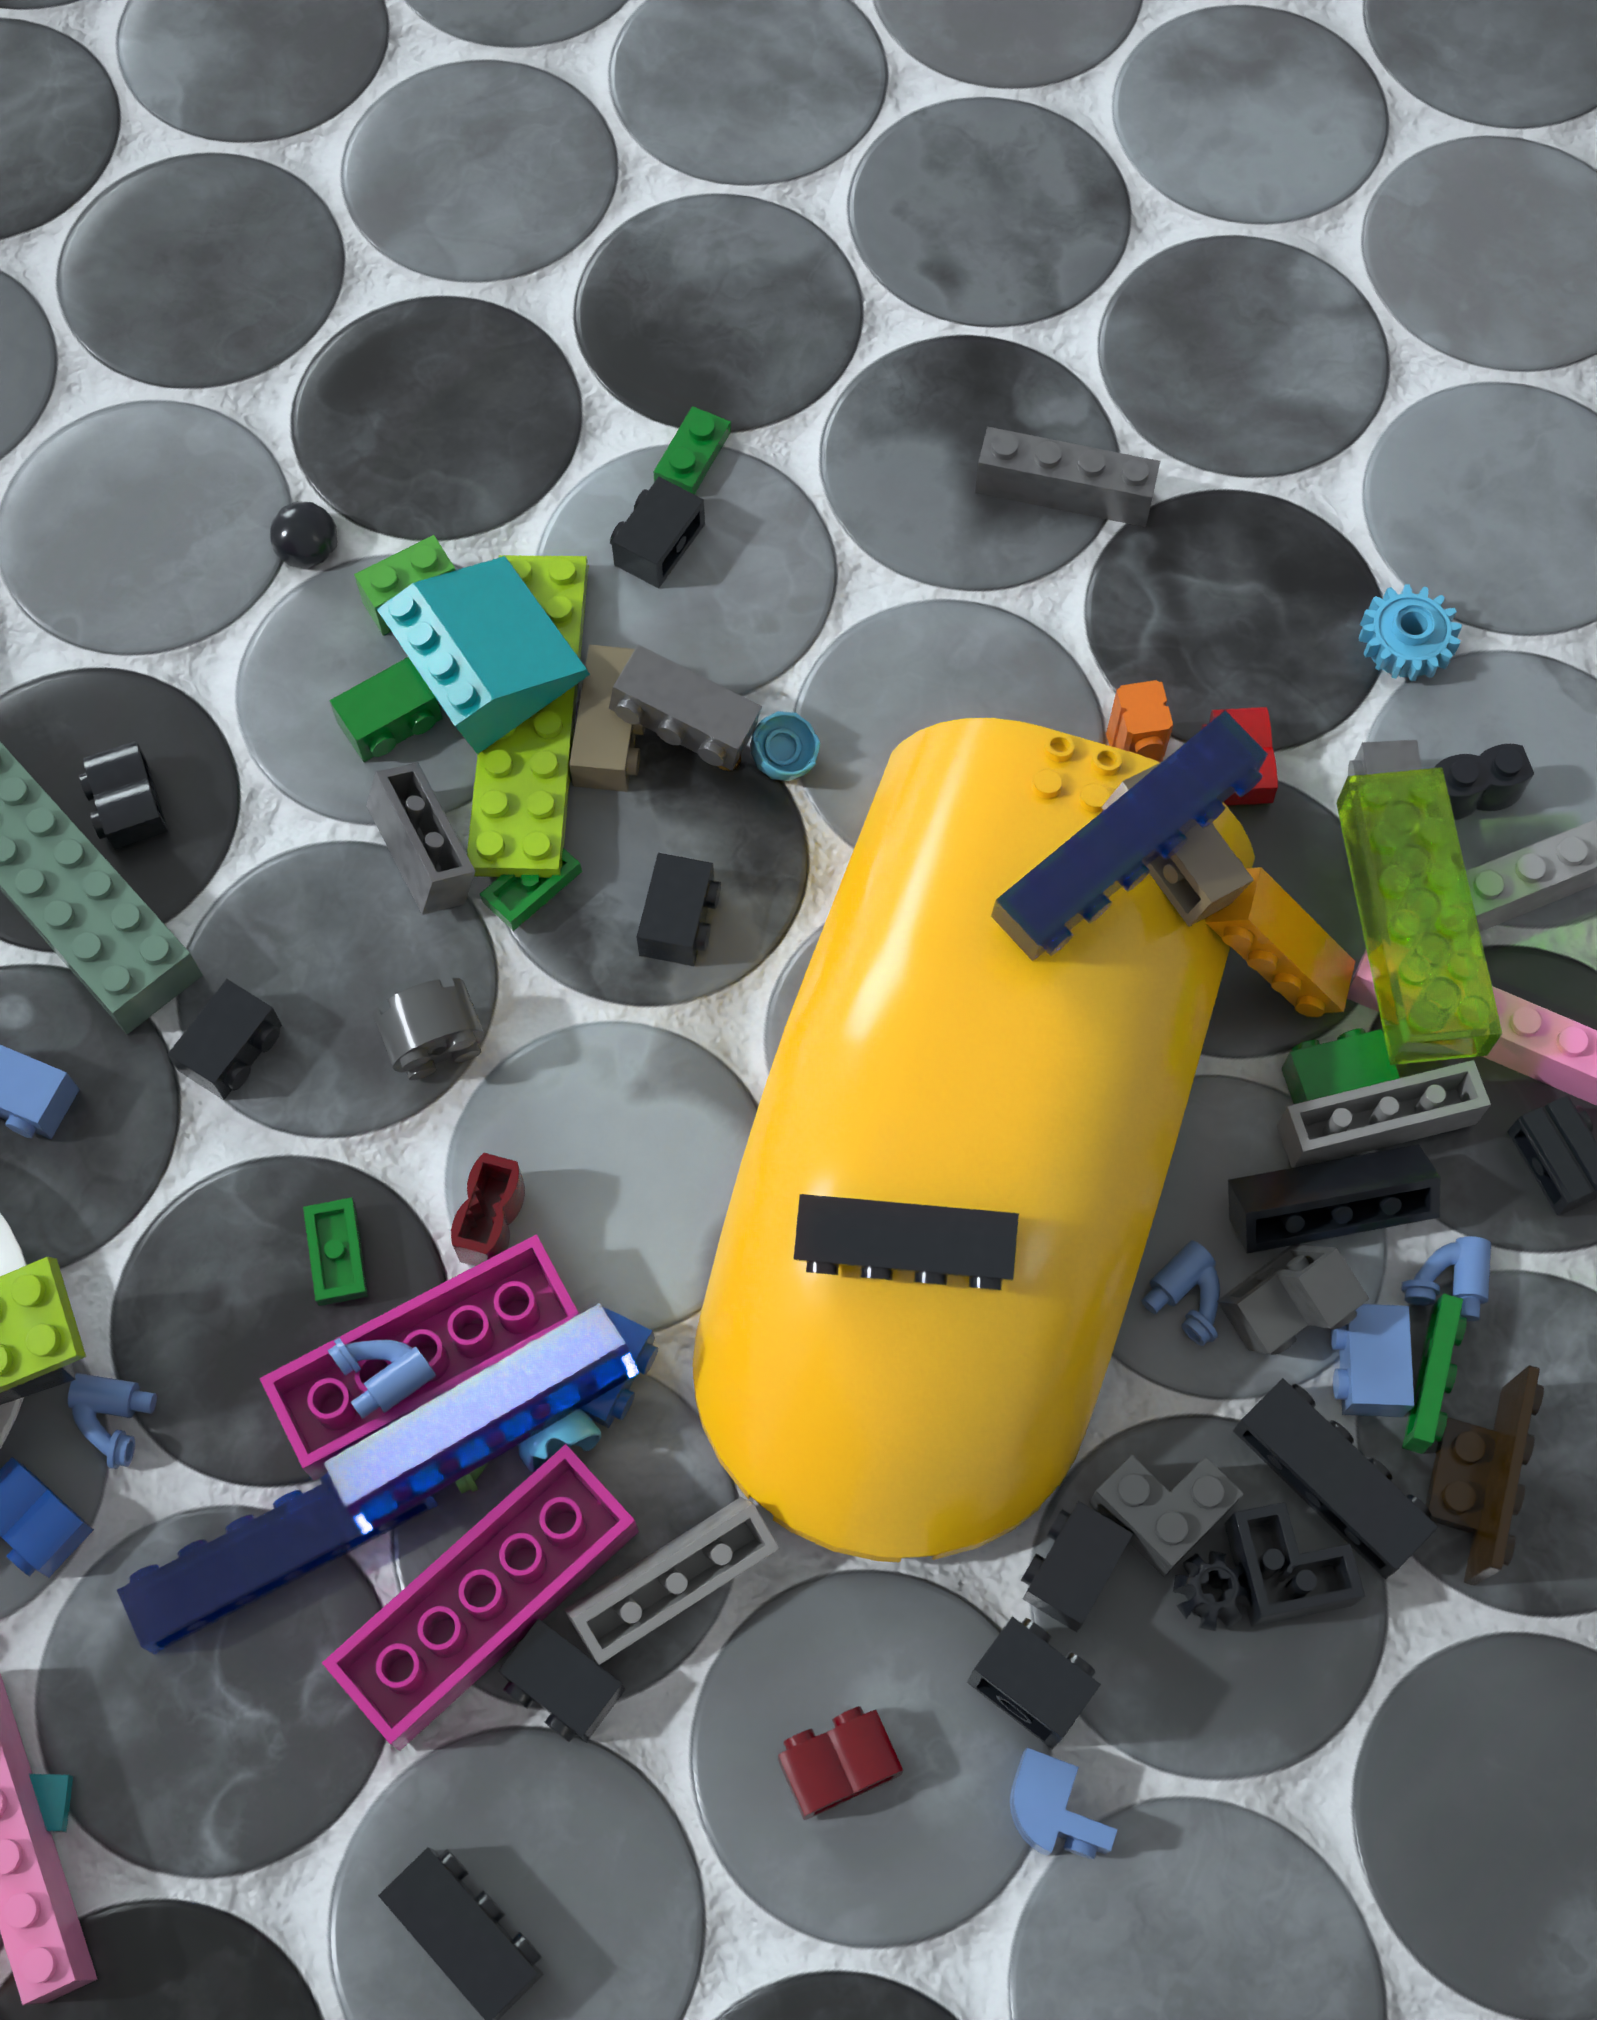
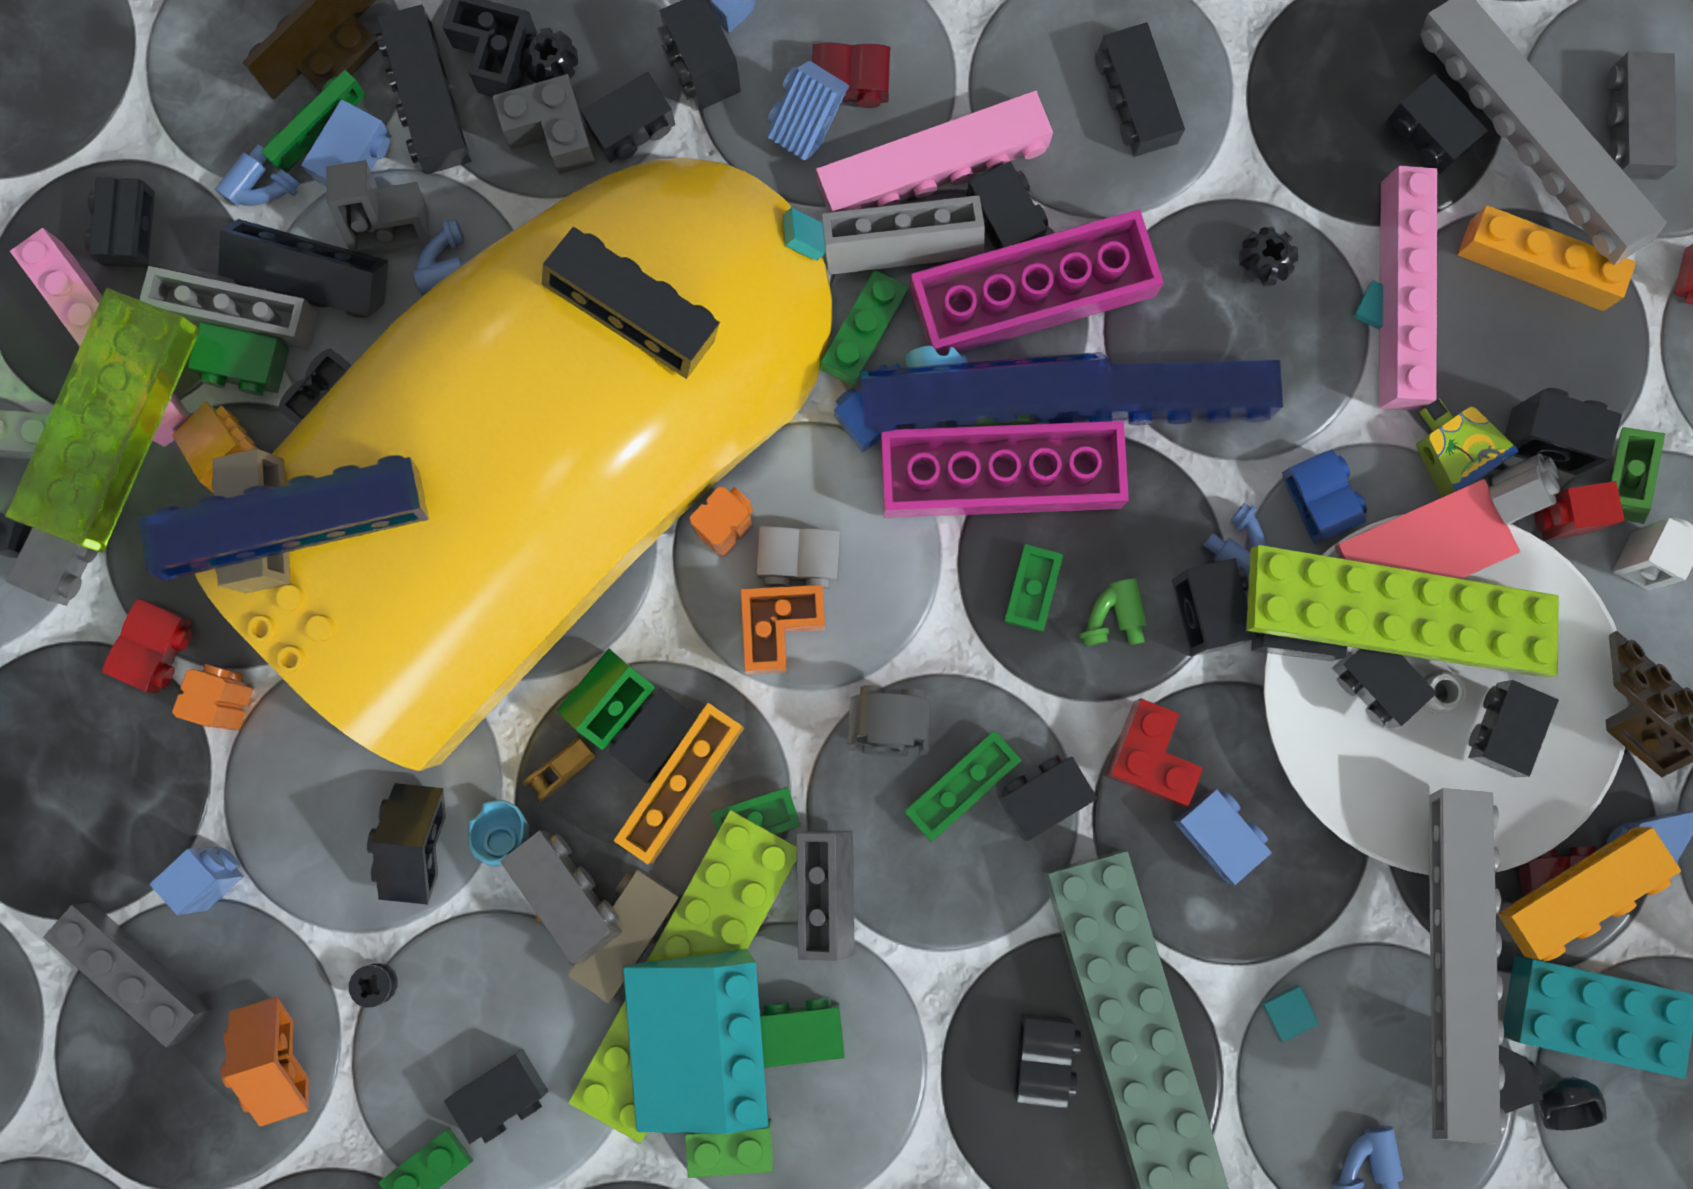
camera: 155 degrees left, 15 degrees up
(114, 1316) = (1213, 606): none -> black brick
(129, 1122) = (1142, 759): none -> red brick
(190, 1791) = (1278, 255): none -> black piece
(221, 1289) = (1129, 612): none -> bright green plant
(324, 1012) = (962, 786): none -> green plate
(392, 1384) = (1038, 442): medium blue plant -> none
(492, 1204) = (919, 547): dark red brick -> none
(608, 1080) = (771, 614): none -> orange brick
(615, 1159) = (798, 556): none -> light grey brick
(623, 871) = (679, 784): none -> light orange brick
(666, 1450) = (864, 328): none -> green plate
(681, 1706) = (937, 156): none -> bright pink brick
(714, 1144) = (723, 519): none -> orange brick
(745, 915) = (605, 699): none -> green brick
(757, 841) = (564, 764): none -> pearl gold bar
(783, 1500) = (804, 234): none -> teal tile
(835, 581) = (379, 978): none -> black wheel
(866, 1674) = (806, 109): none -> medium blue brick
(870, 693) = (407, 843): none -> black brick
(897, 459) = (262, 1062): none -> orange brick
(1050, 571) = (197, 879): none -> medium blue brick
(1226, 1075) = (319, 379): none -> black brick

